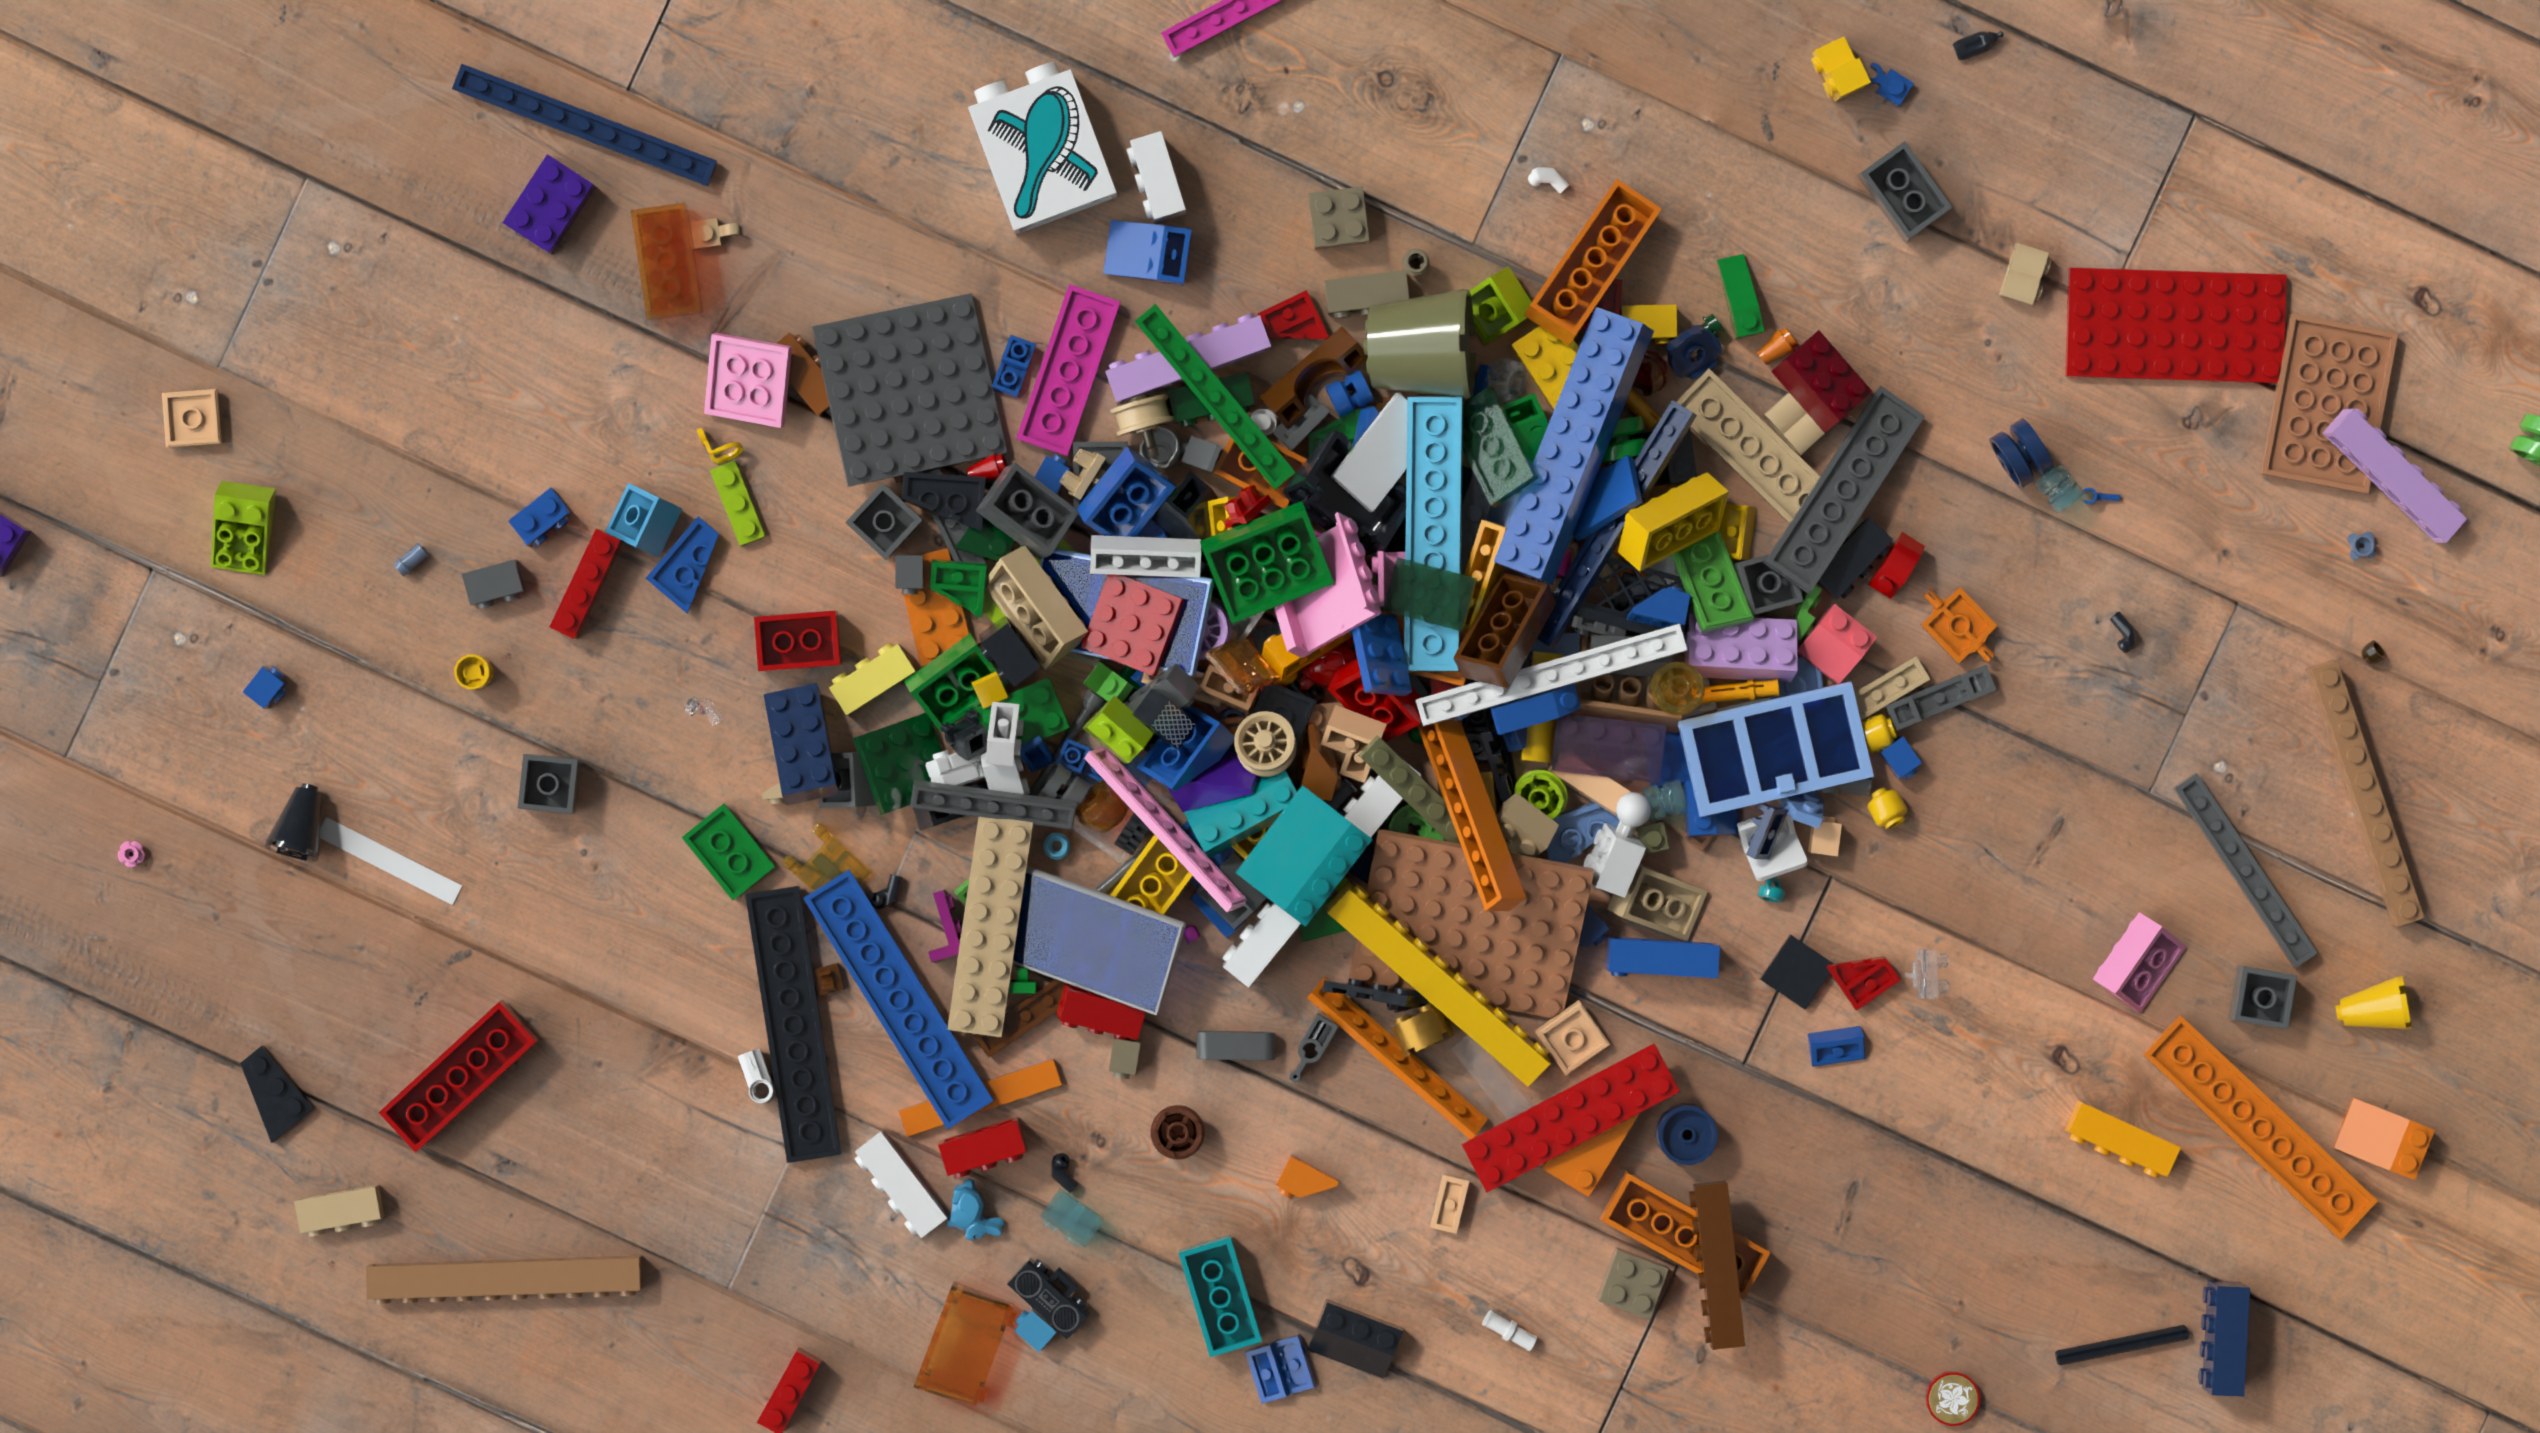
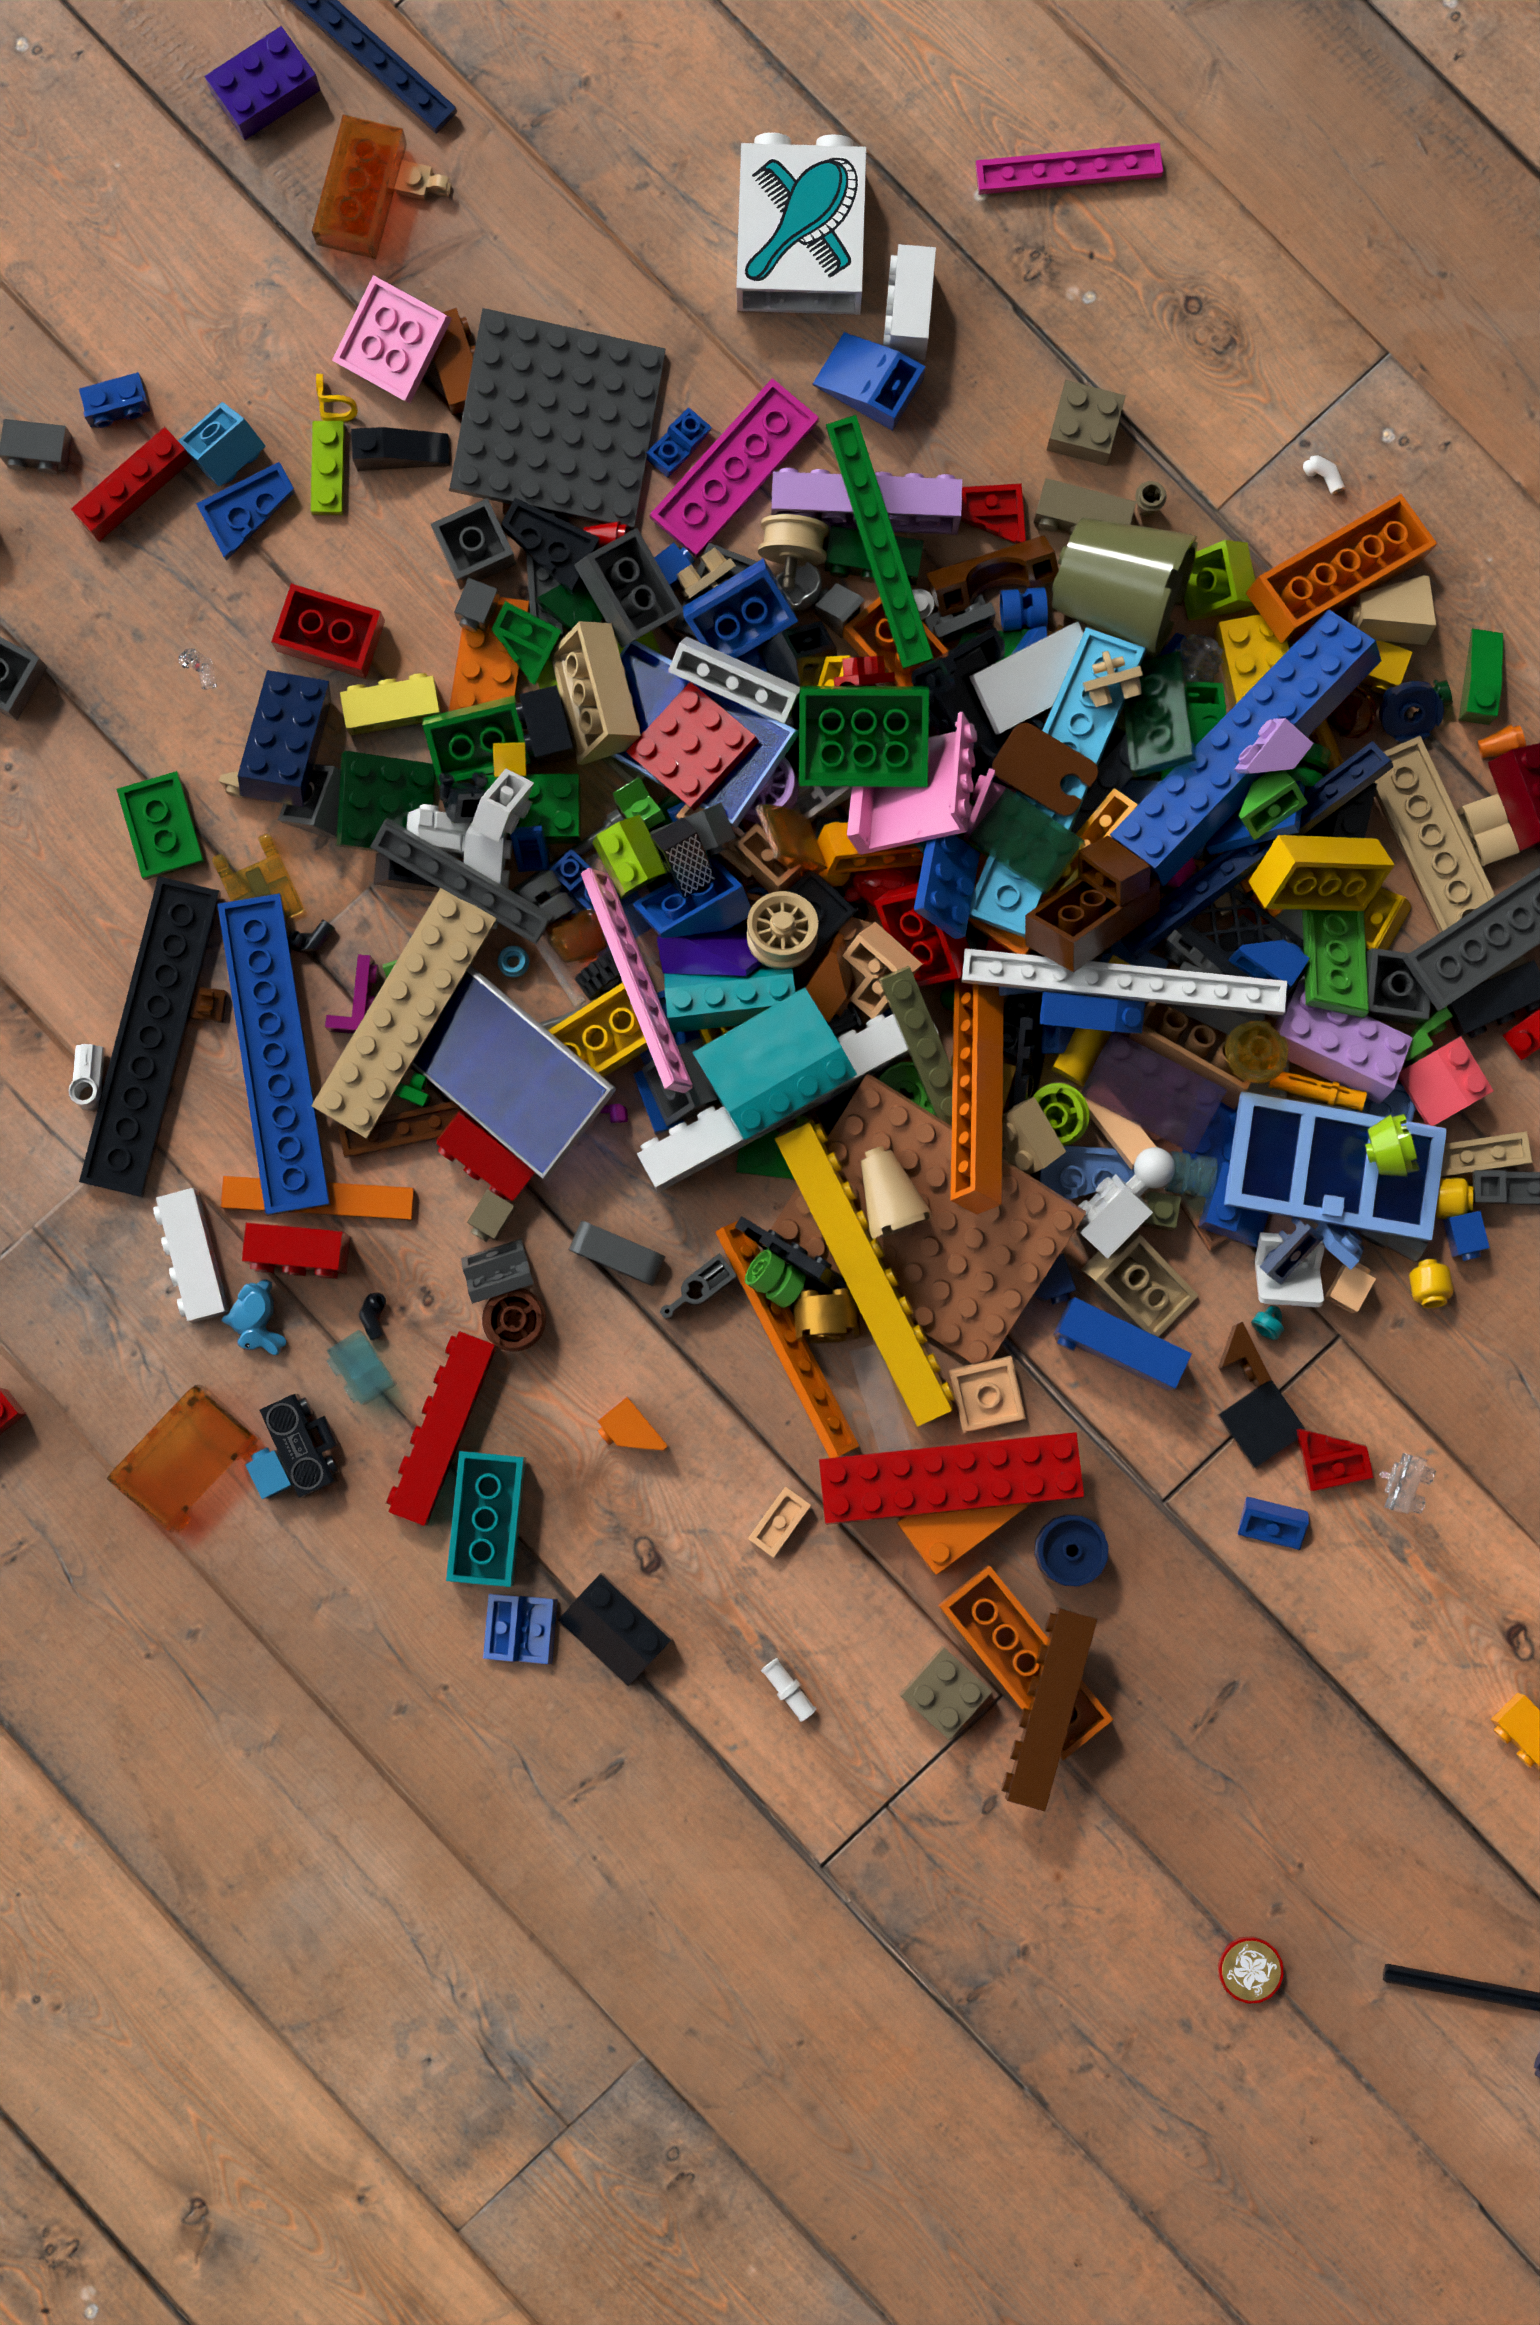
camera: 20 degrees right, 5 degrees down
(791, 464) = (398, 448): none -> black slope
(1147, 1099) = (497, 1271): none -> dark grey slope
(1156, 1239) = (442, 1428): none -> red brick
(1369, 1017) = (775, 1278): none -> bright green wheel
(1413, 529) = (1038, 763): none -> reddish brown piece
(1435, 919) = (890, 1195): none -> tan cone
(1438, 445) = (1128, 680): none -> tan hips
(1508, 591) = (1114, 870): none -> reddish brown brick
(1597, 449) = (1276, 749): none -> lavender slope
(1610, 486) = (1270, 802): none -> bright green slope
(1650, 278) = (1396, 612): none -> tan slope
(1756, 920) = (1242, 1347): none -> reddish brown slope
(1813, 720) = (1392, 1147): none -> lime cone

